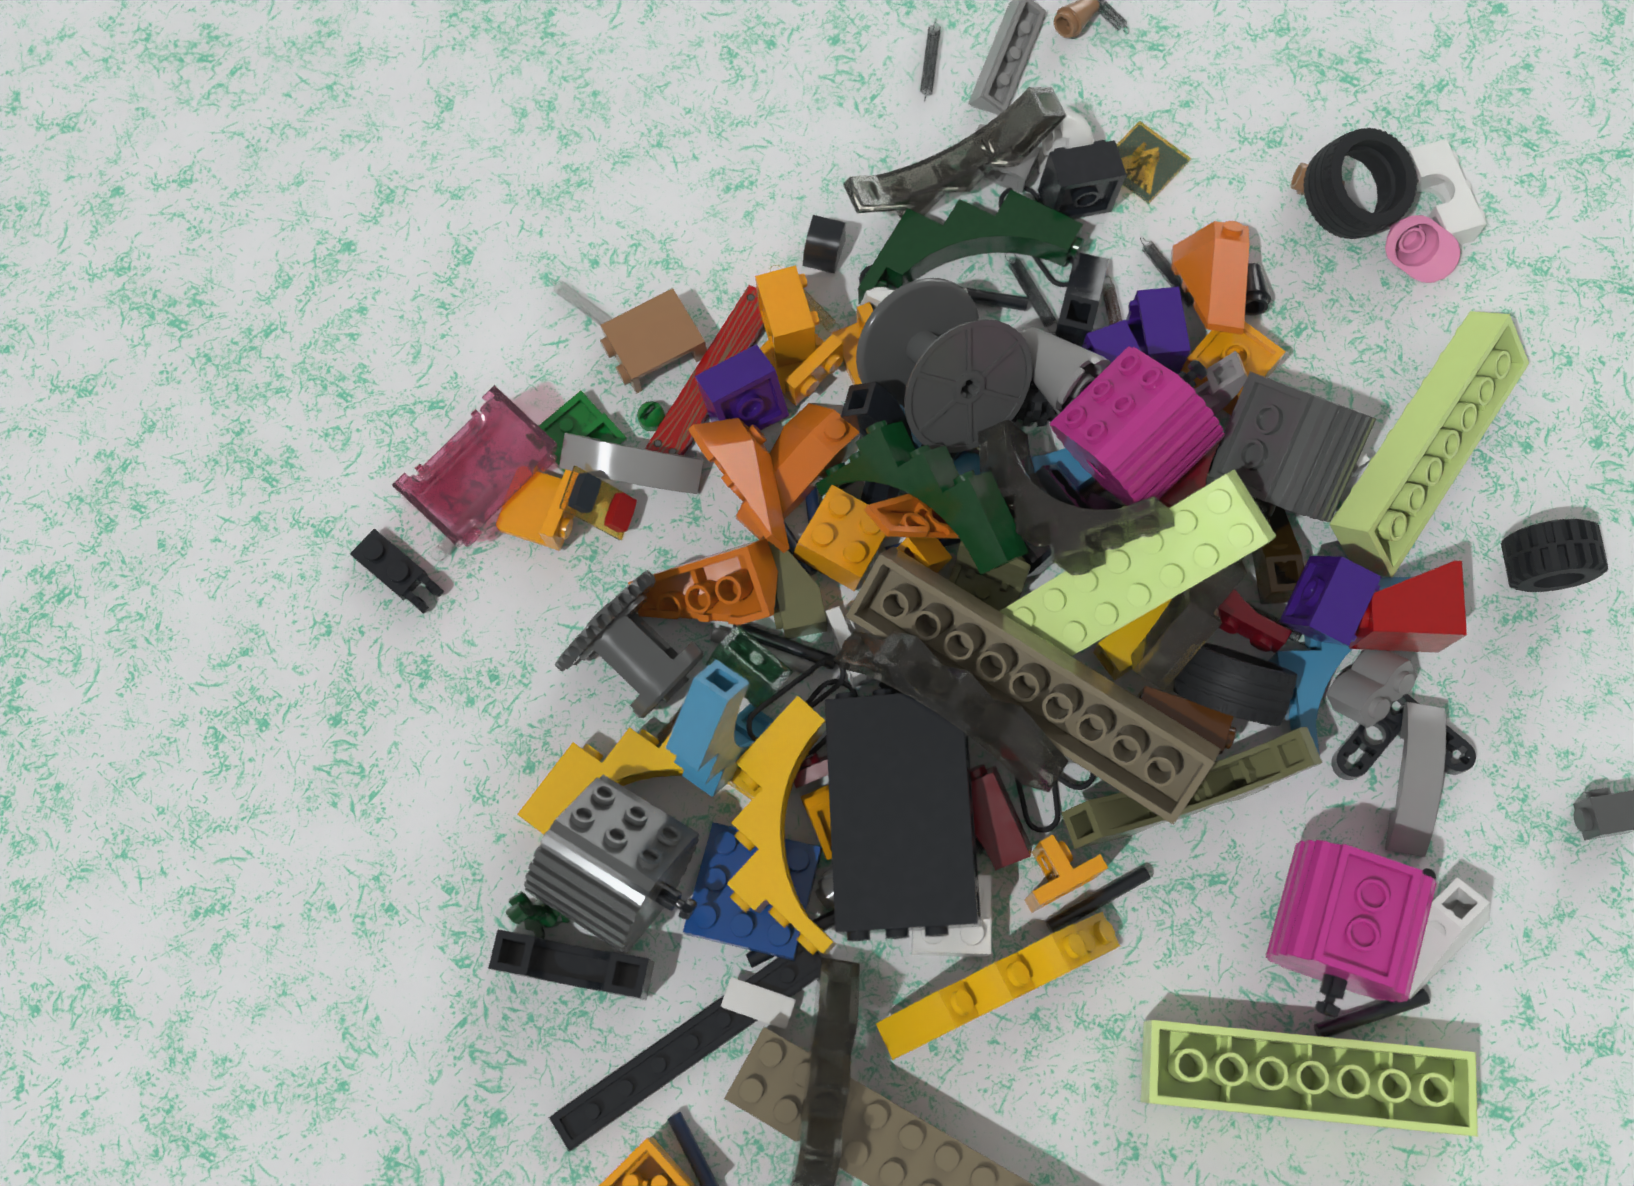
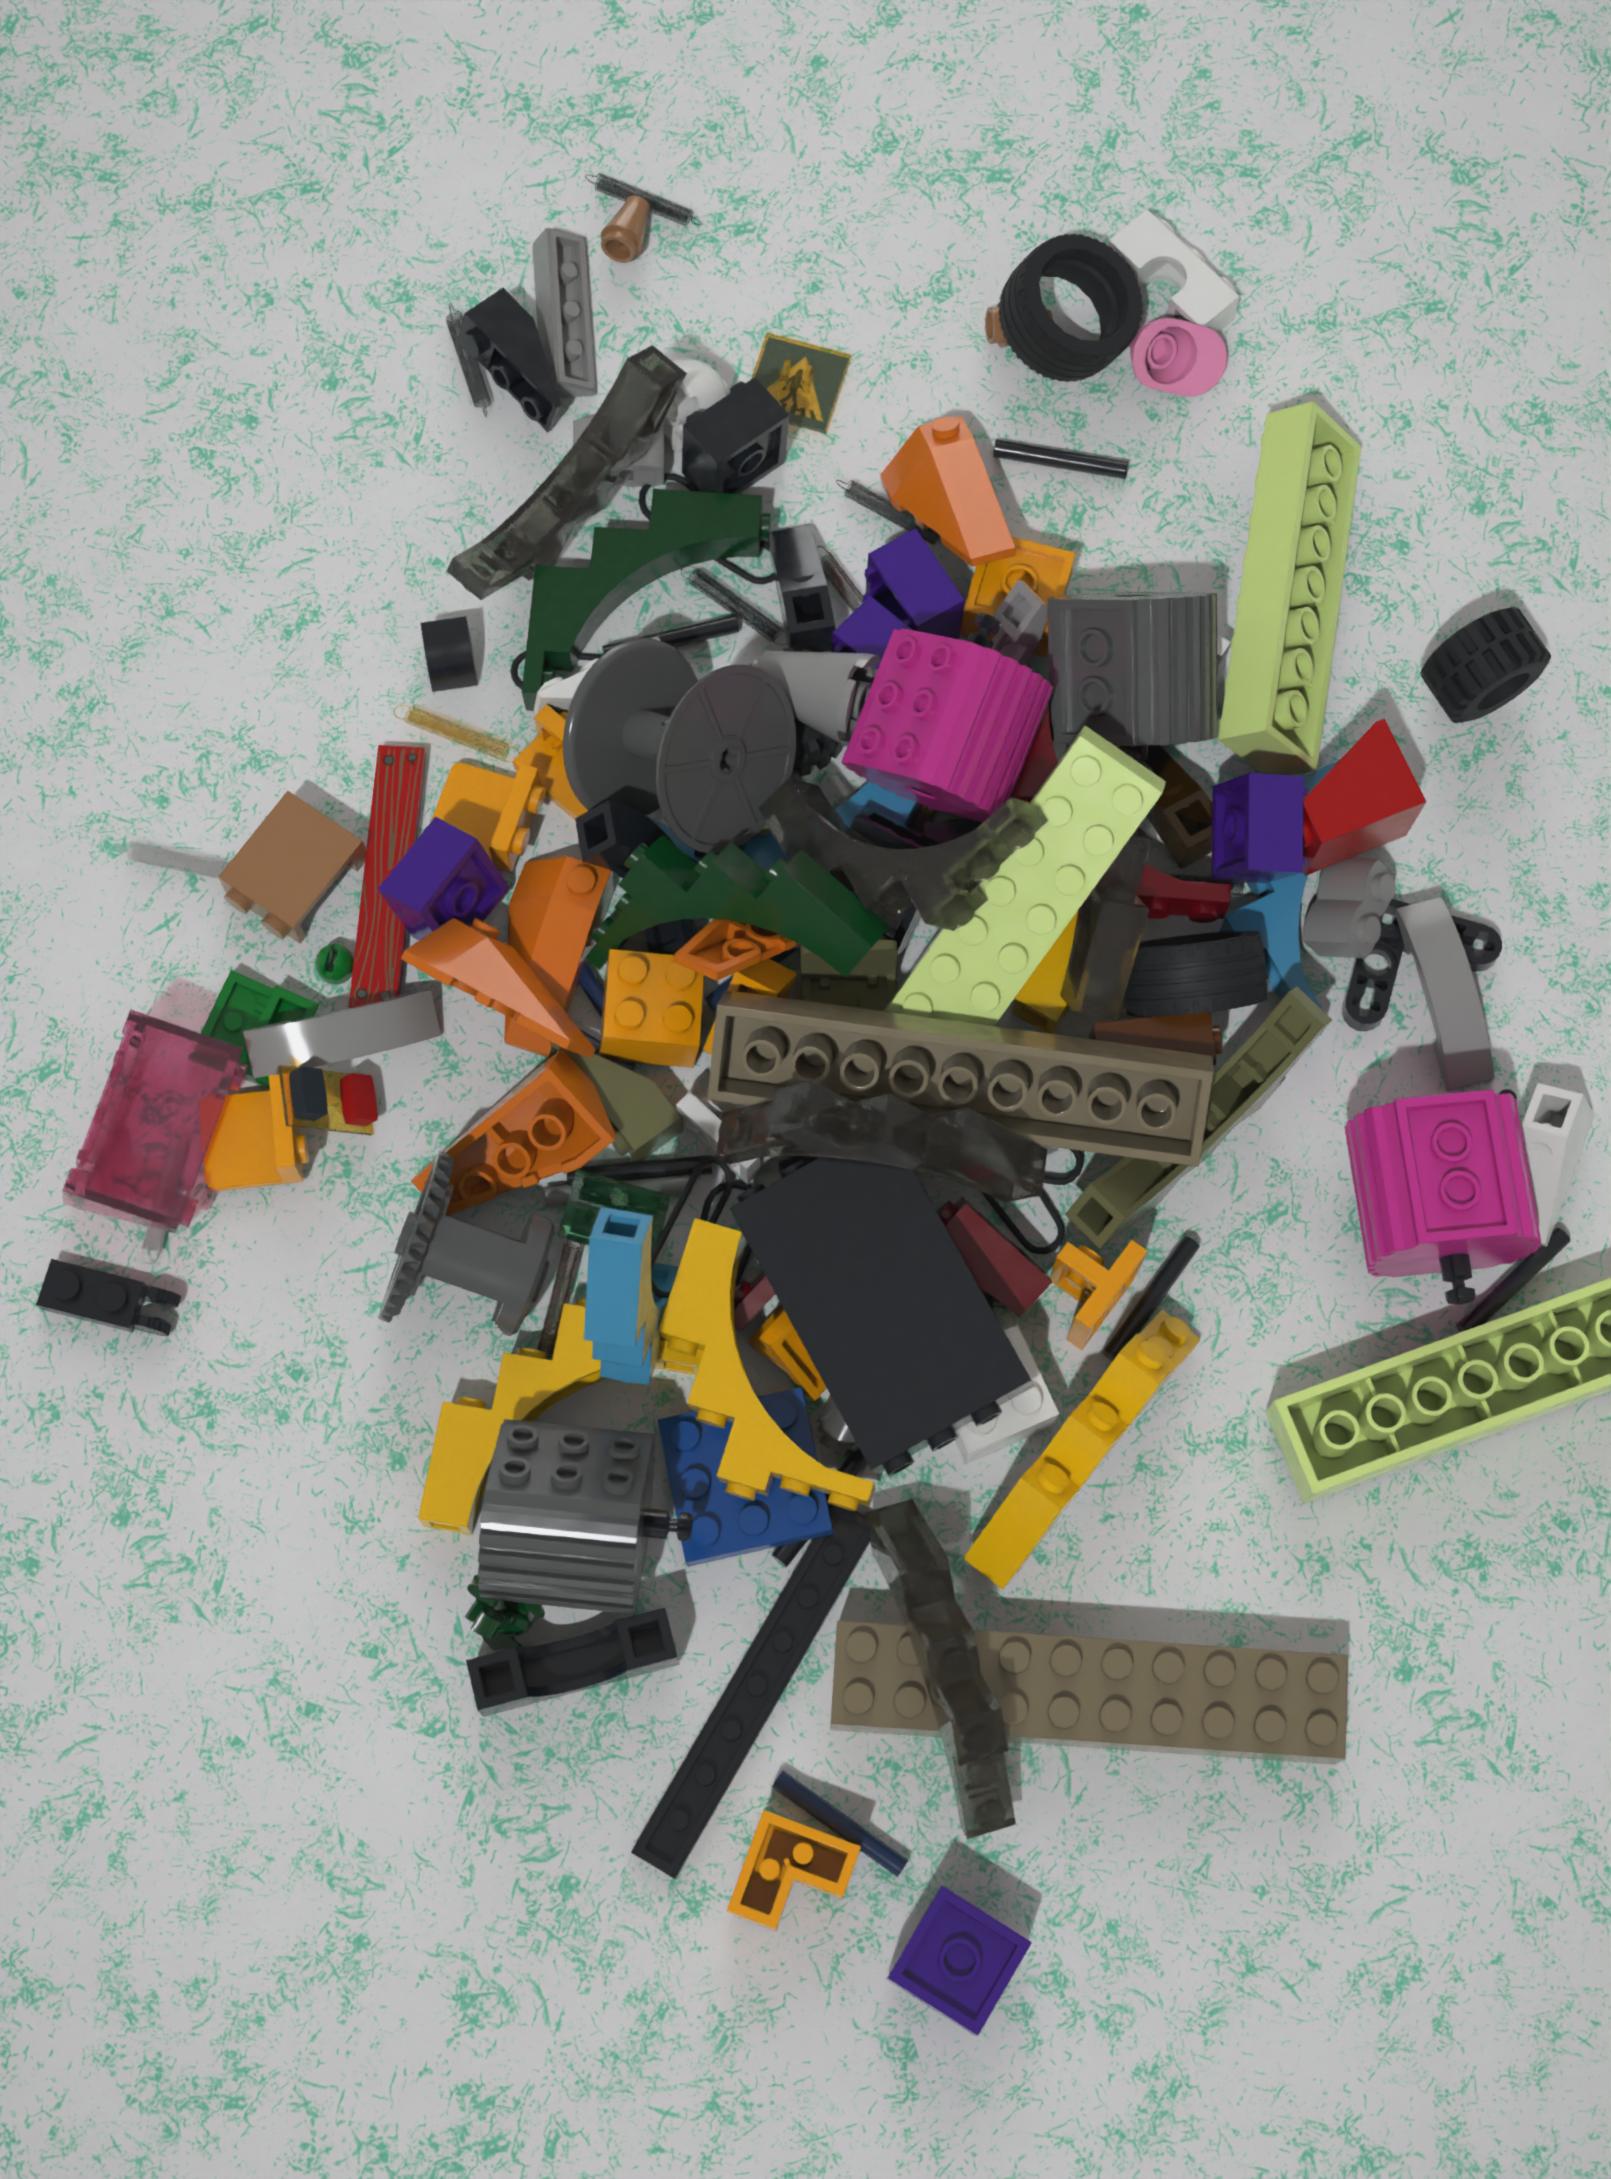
camera: 30 degrees left, 0 degrees up
(758, 1003) = (814, 1602): white sticker -> none
(787, 315) = (453, 765): light orange container -> none
(959, 58) = (510, 349): none -> black slope
(1257, 292) = (1009, 492): black cone -> none
(1305, 286) = (1060, 459): none -> black bar

